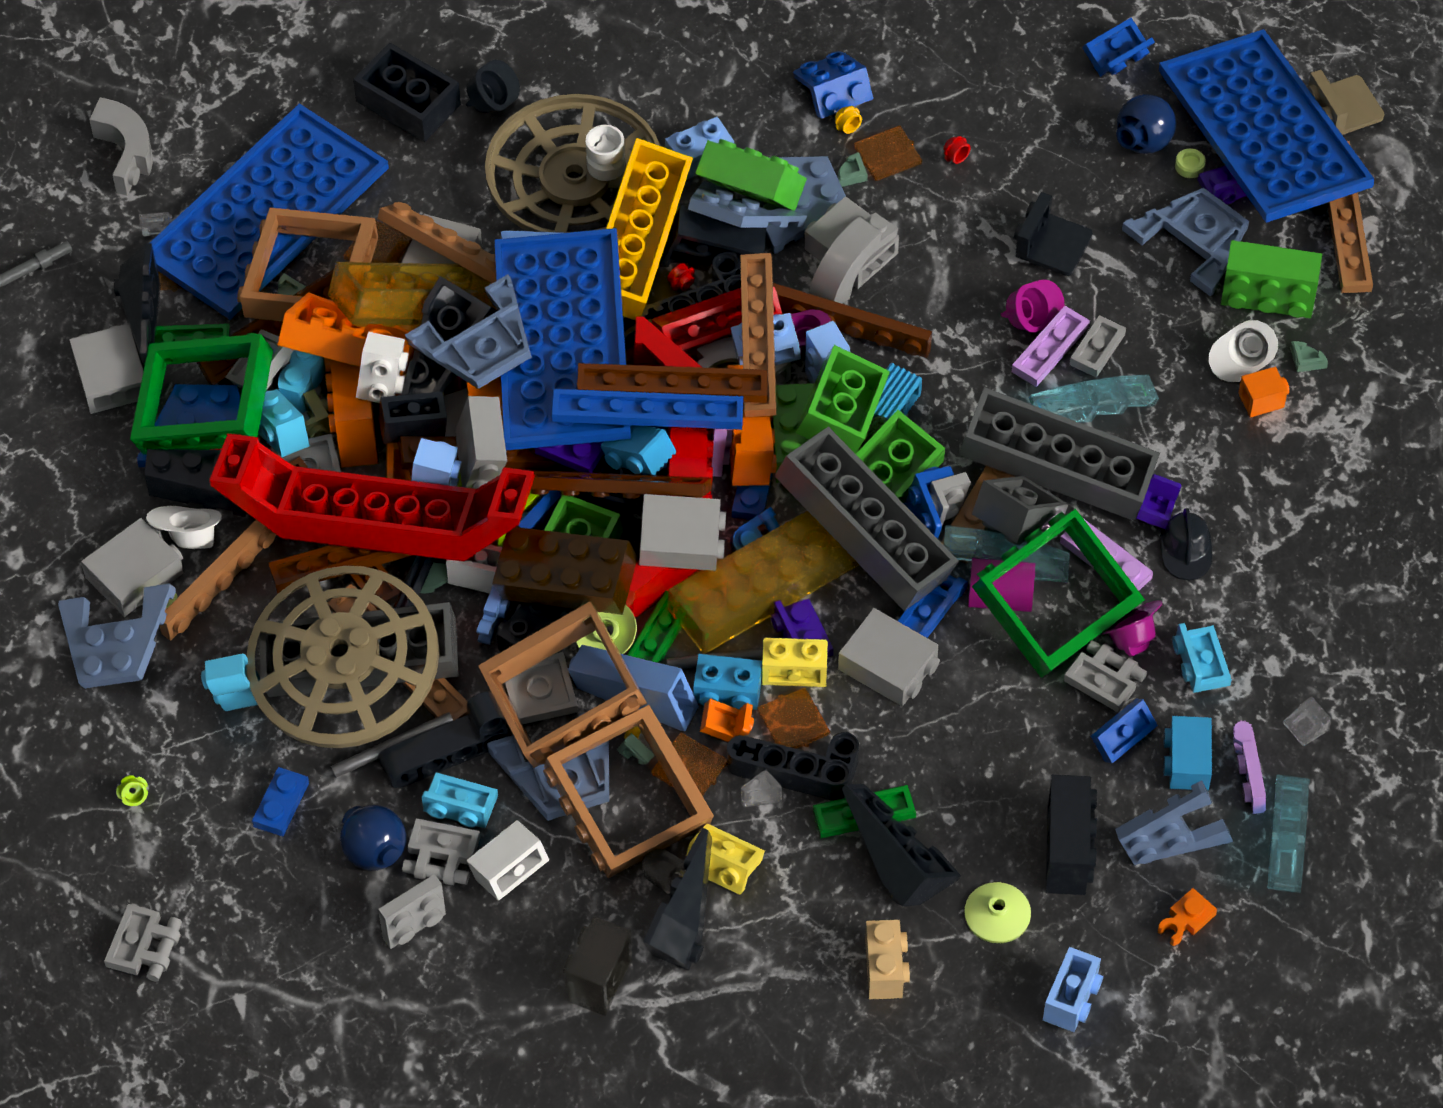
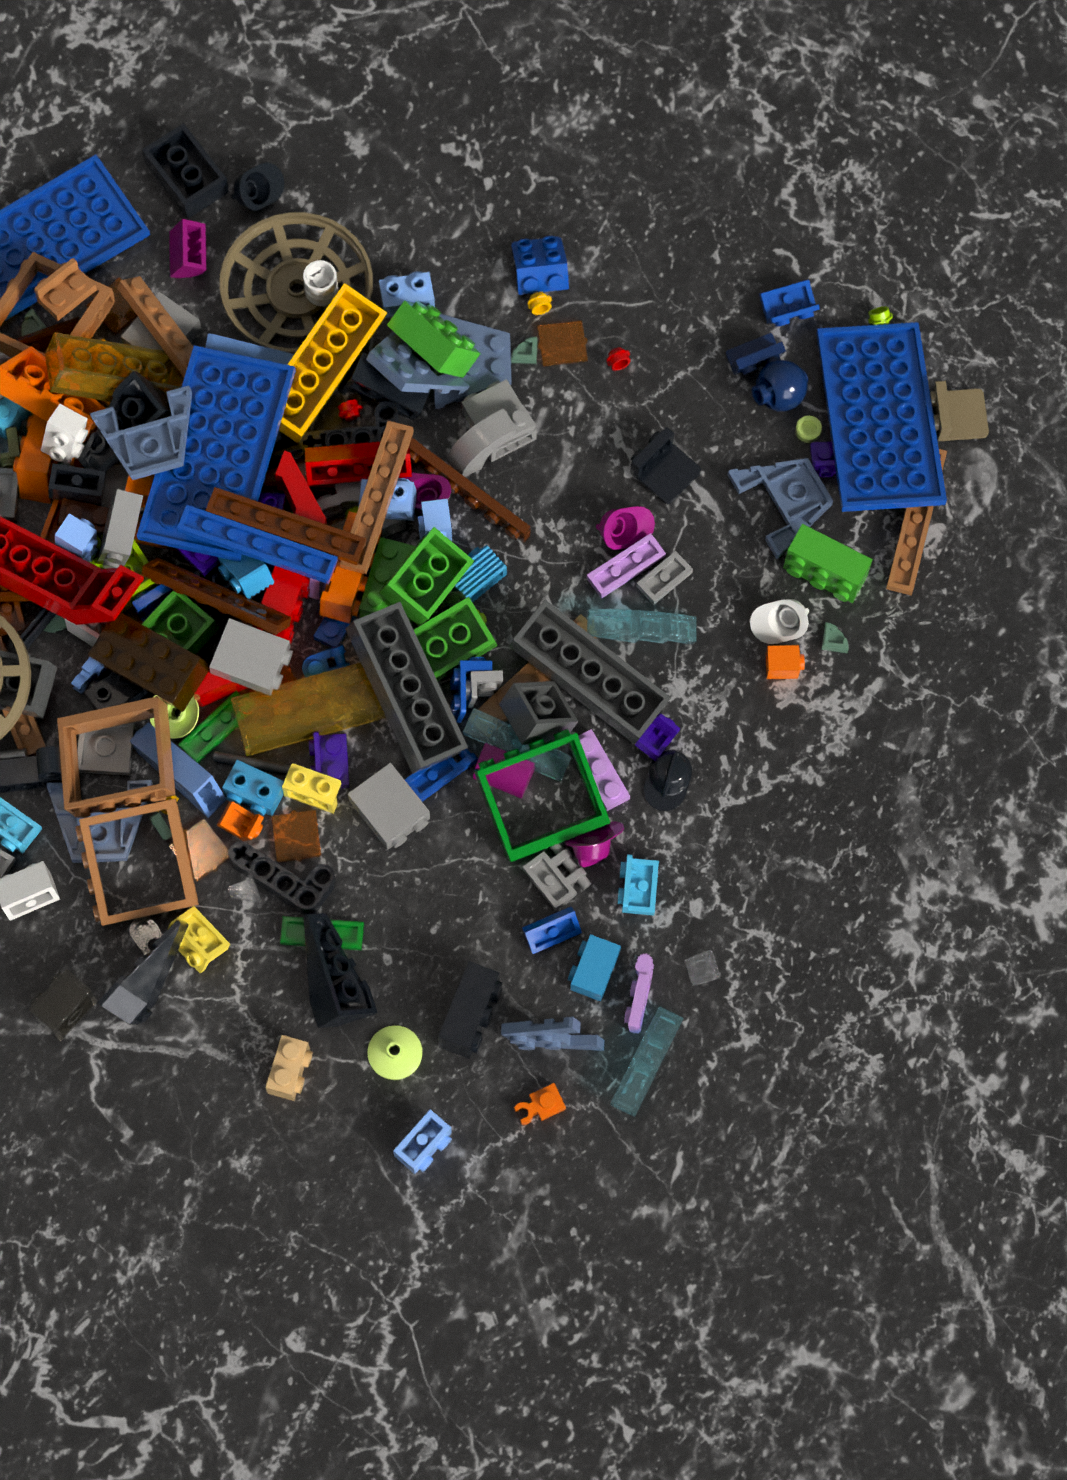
camera: 15 degrees right, 15 degrees up
(322, 230) = (64, 289): none -> medium nougat bracket
(437, 169) = (187, 249): none -> magenta brick
(1102, 105) = (754, 353): none -> dark blue bracket
(1220, 34) = (880, 315): none -> lime plate

